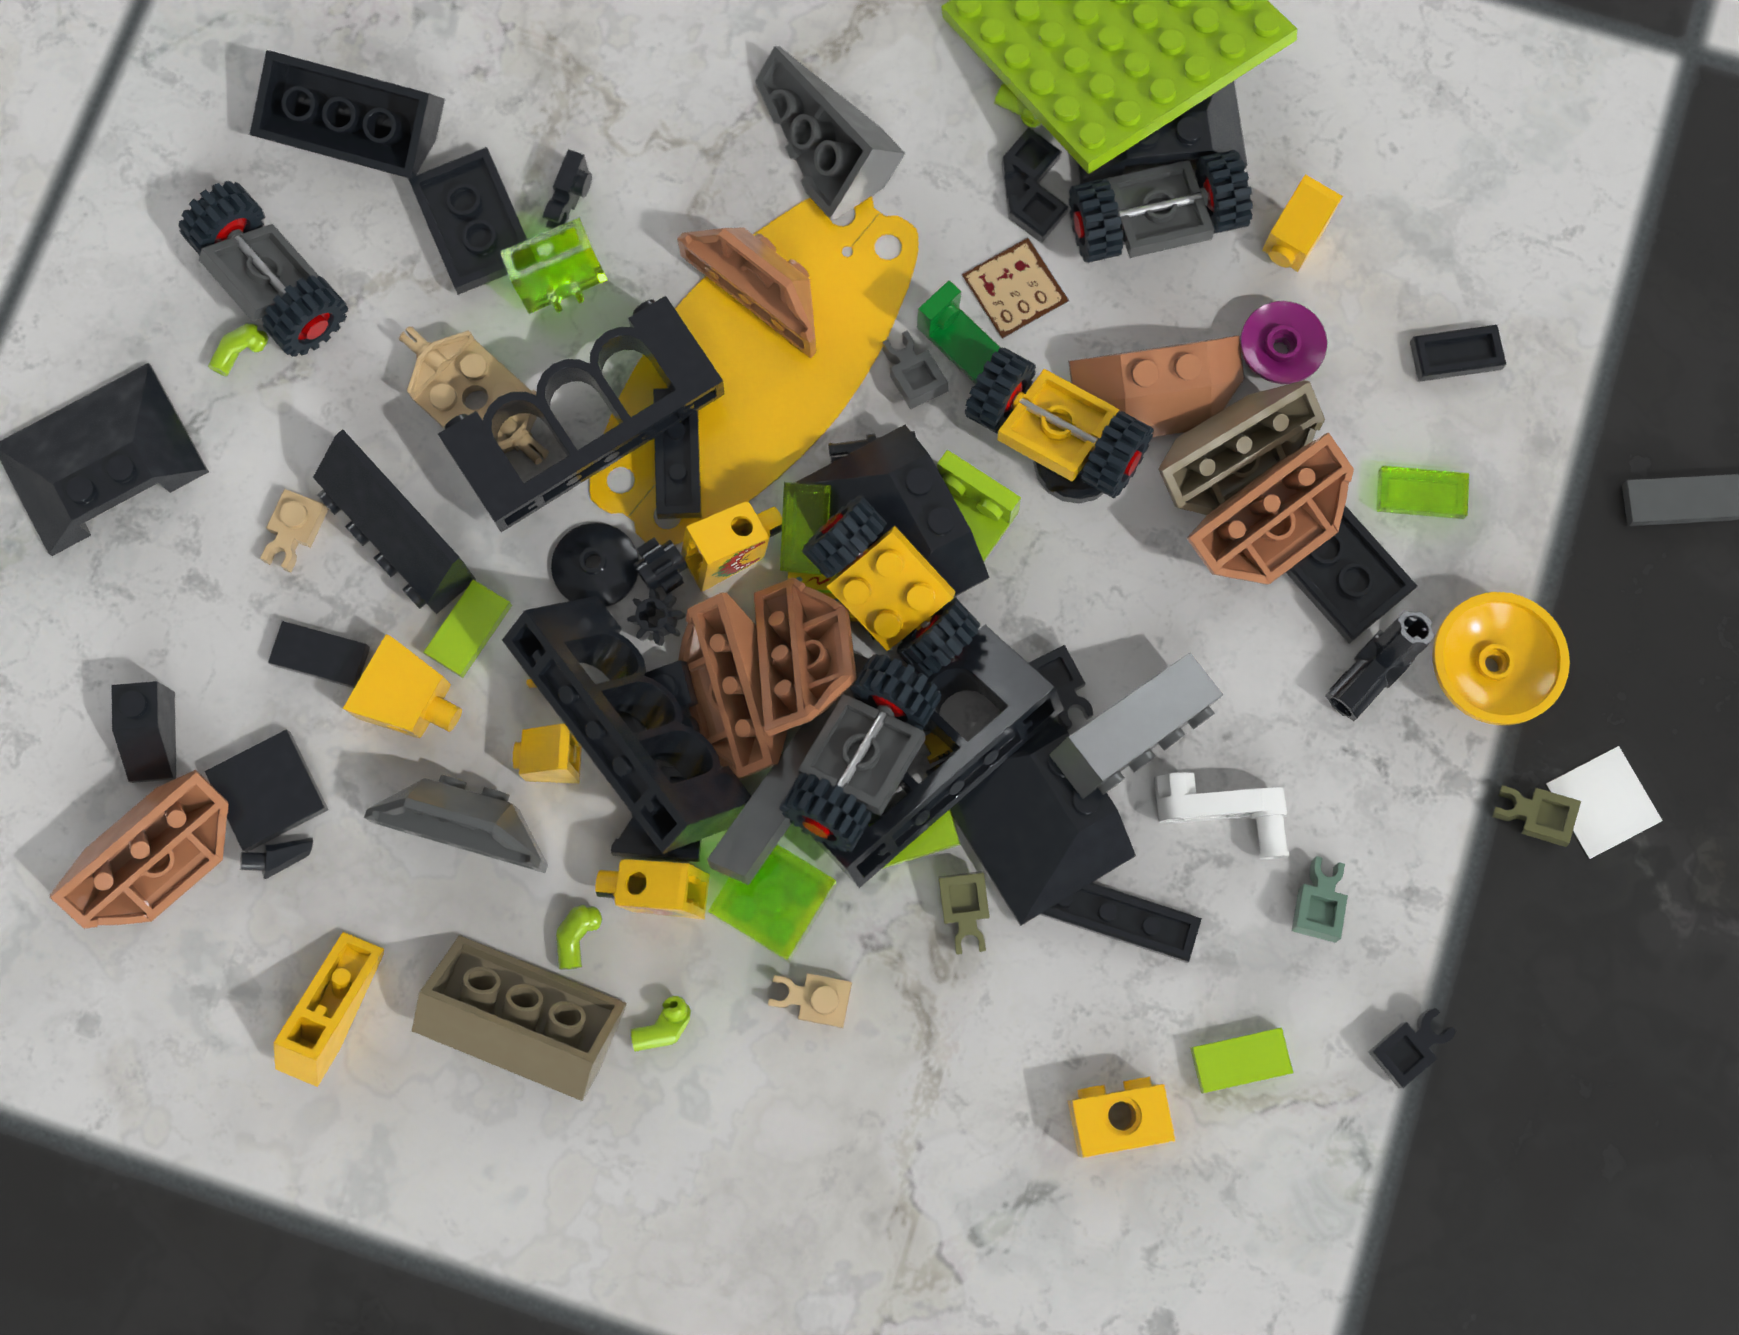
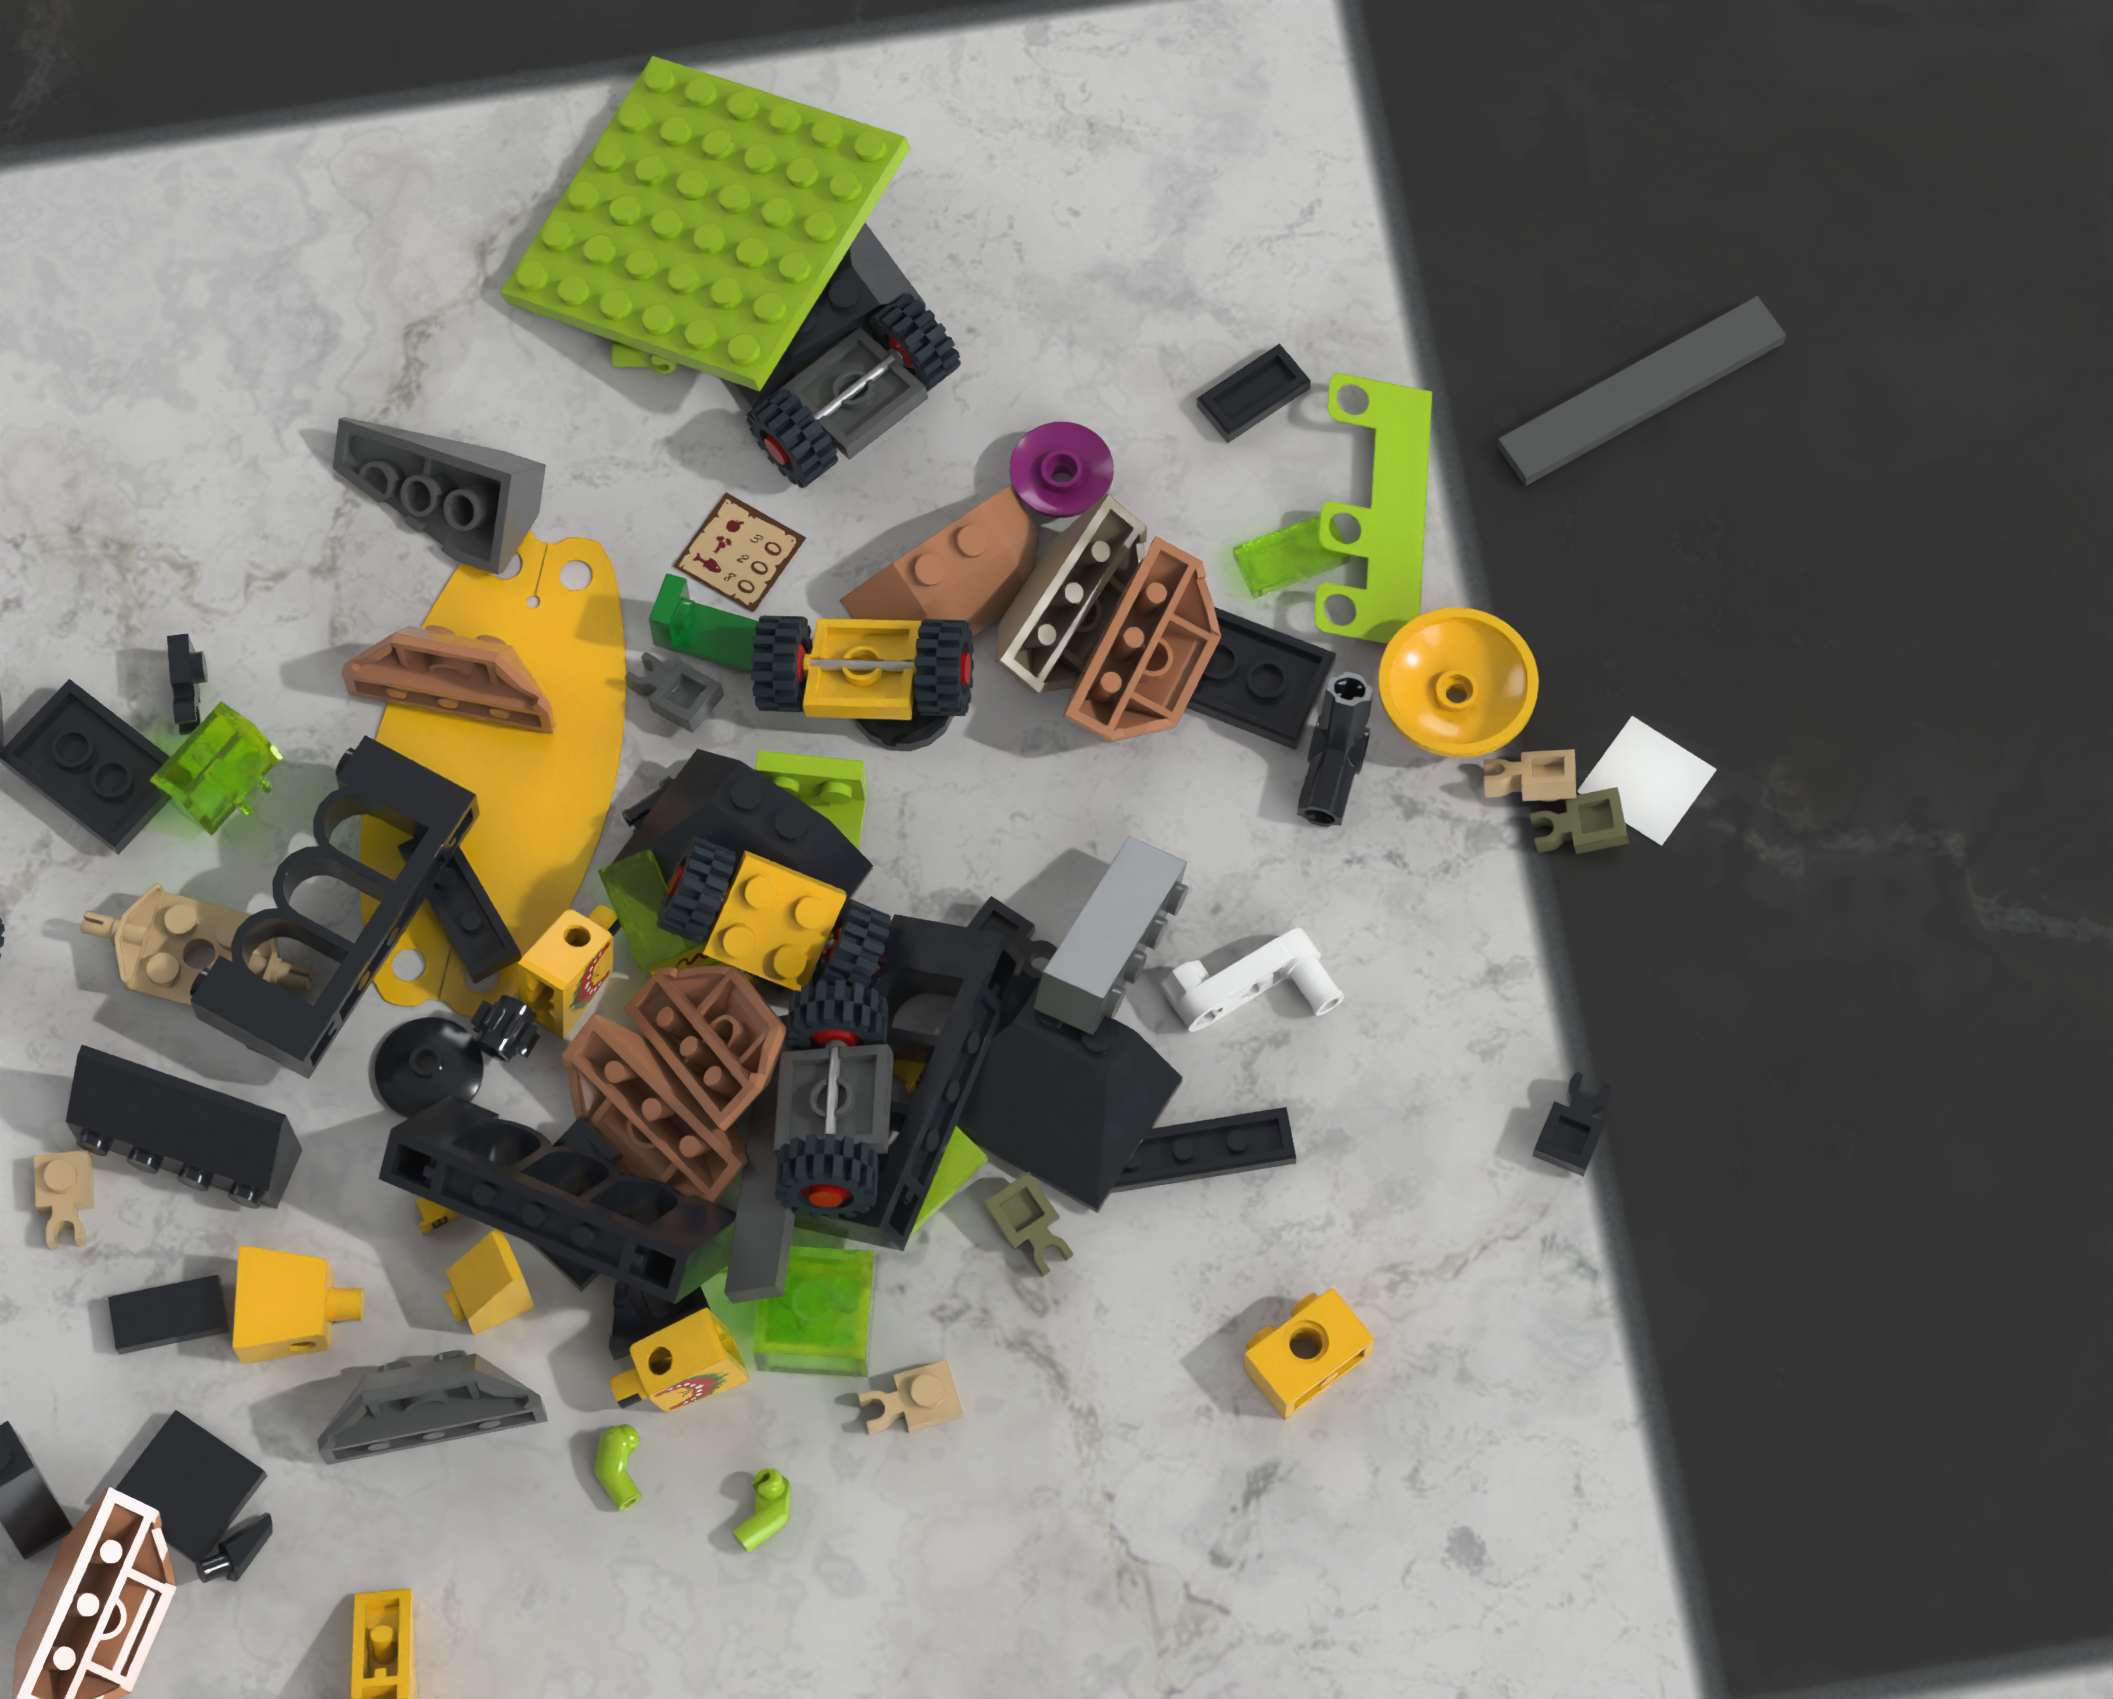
camera: 25 degrees left, 10 degrees down
(467, 628) = (323, 1203): lime tile -> none
(518, 1017) = (601, 1580): dark tan slope -> none
(647, 609) = (513, 1082): black gear -> none
(1027, 201) = (705, 454): black tile -> none
(1241, 1060) = (1404, 1231): lime tile -> none
(1301, 223) = (1016, 337): yellow slope -> none
(1318, 907) = (1404, 1032): sand green plate -> none
(1514, 506) = (1395, 523): none -> lime piece
(1523, 759) = (1538, 776): none -> tan plate

